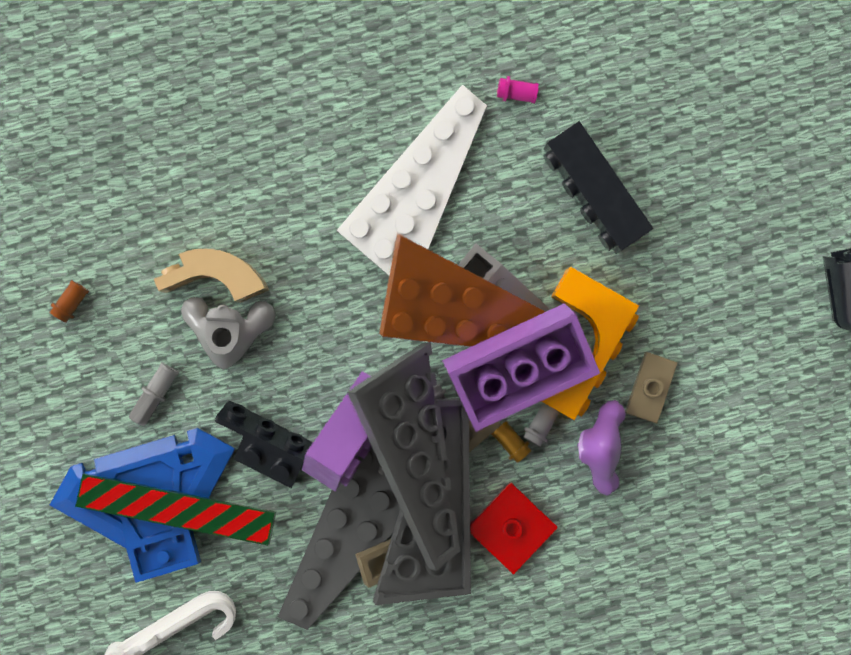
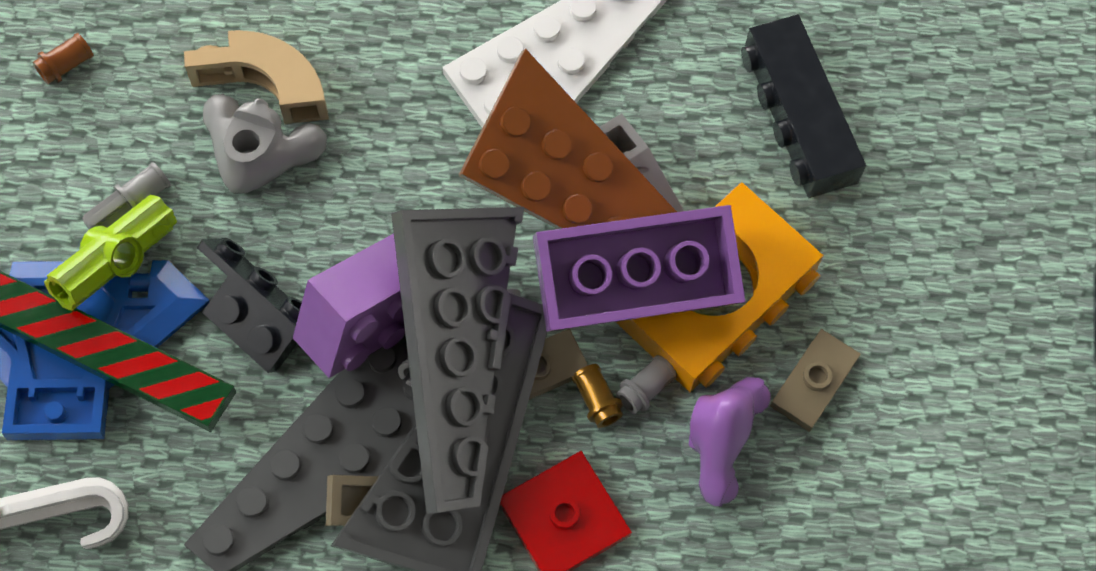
camera: 10 degrees right, 20 degrees down
(159, 442) = (110, 252): none -> lime piece

